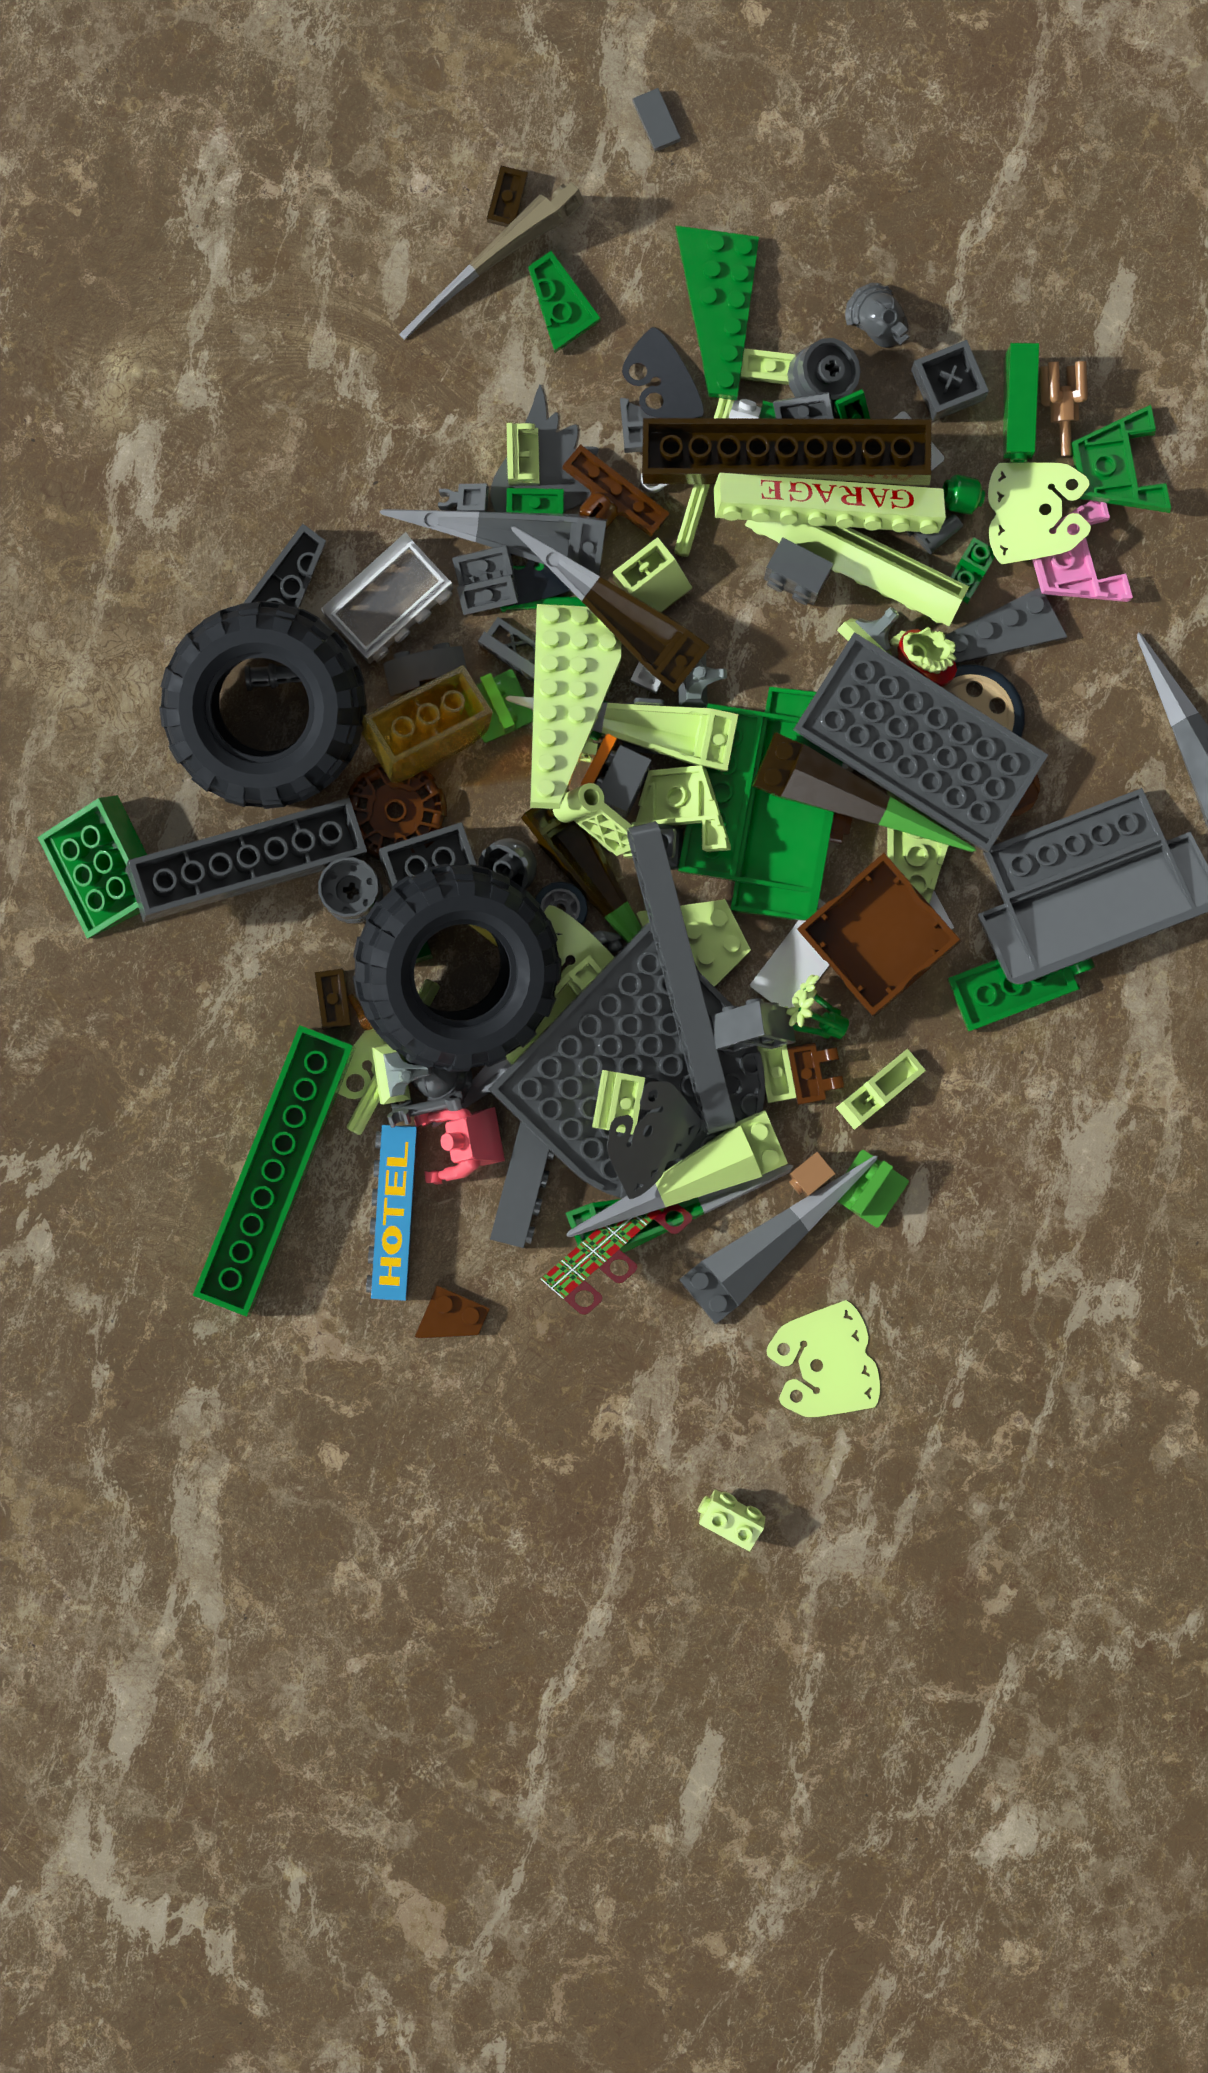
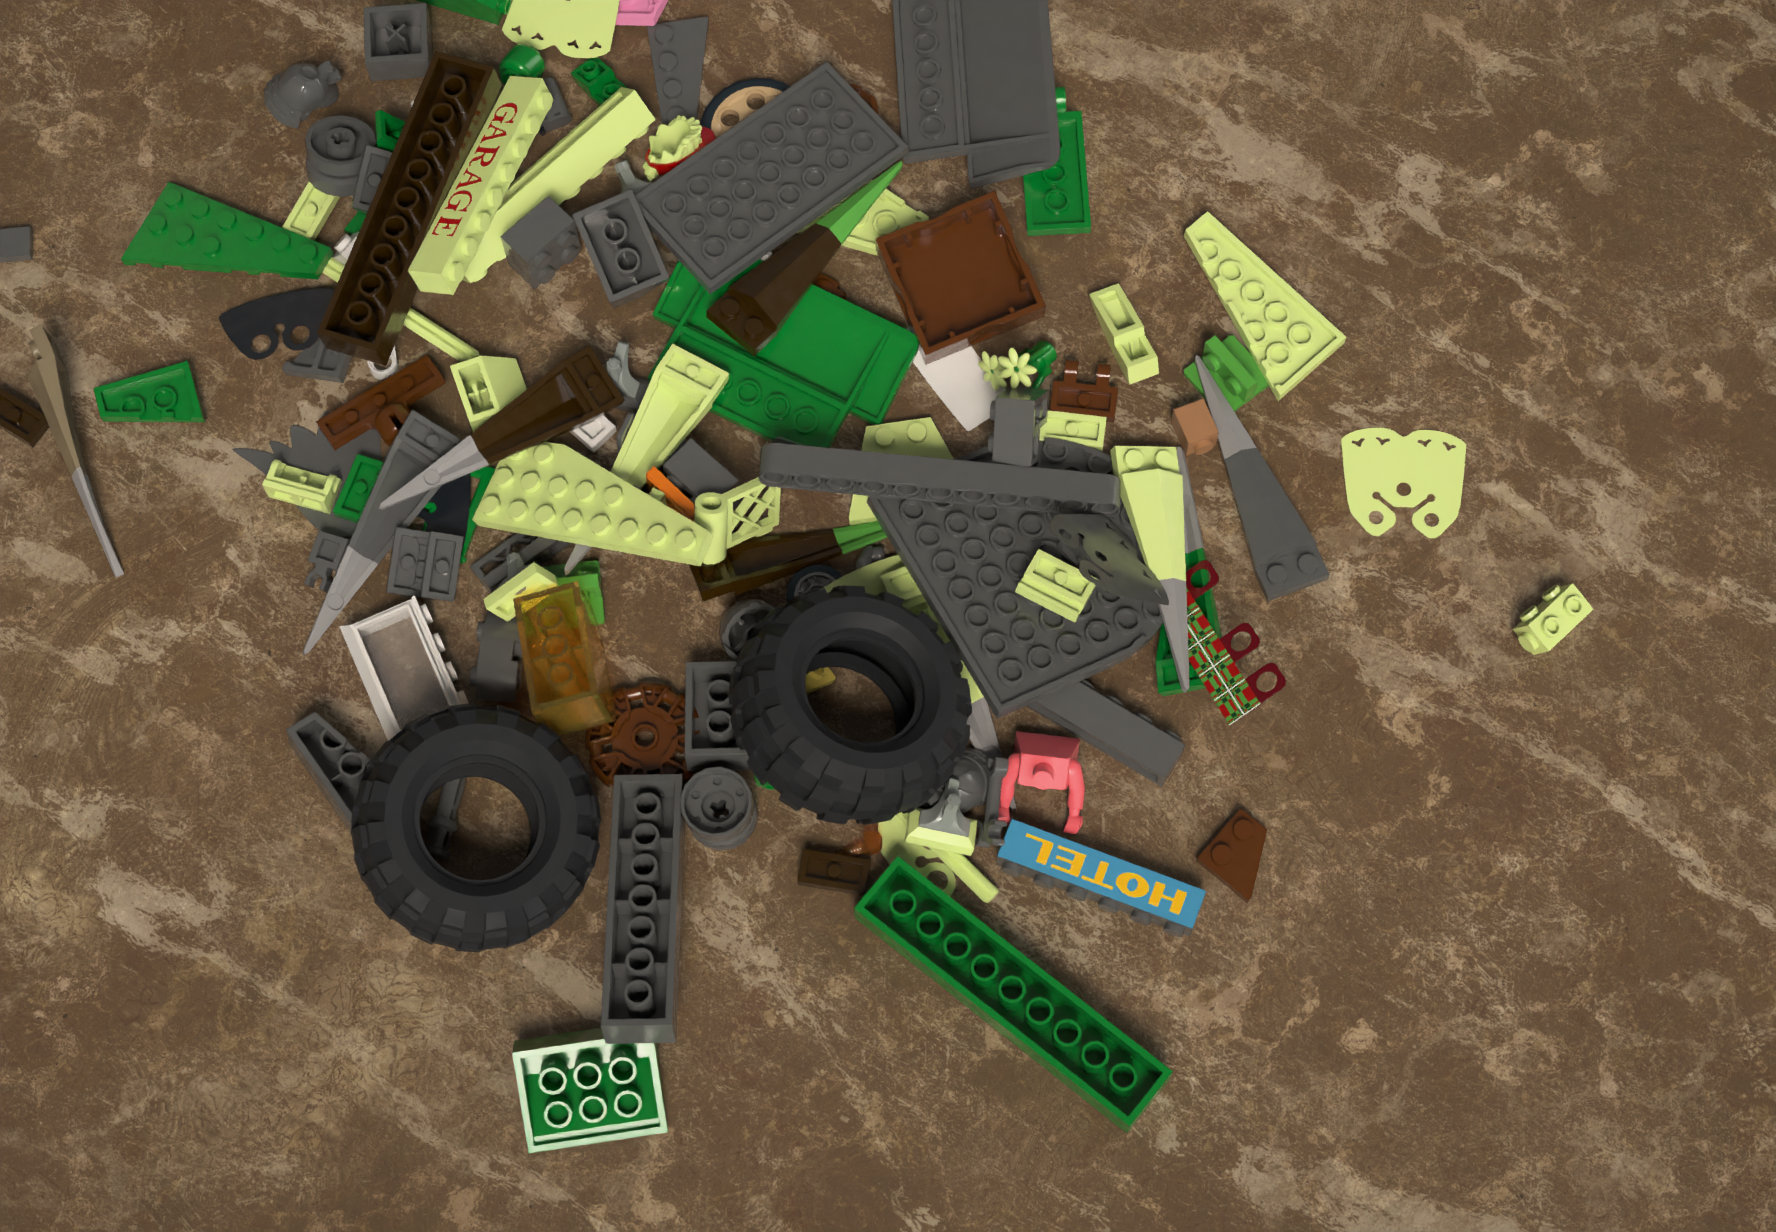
camera: 70 degrees left, 15 degrees down
(481, 665) = (520, 582): none -> yellowish green piece
(682, 798) = (744, 424): yellowish green wing -> none
(810, 639) = (621, 248): none -> dark grey slope
(934, 1211) = (1274, 320): none -> yellowish green wing

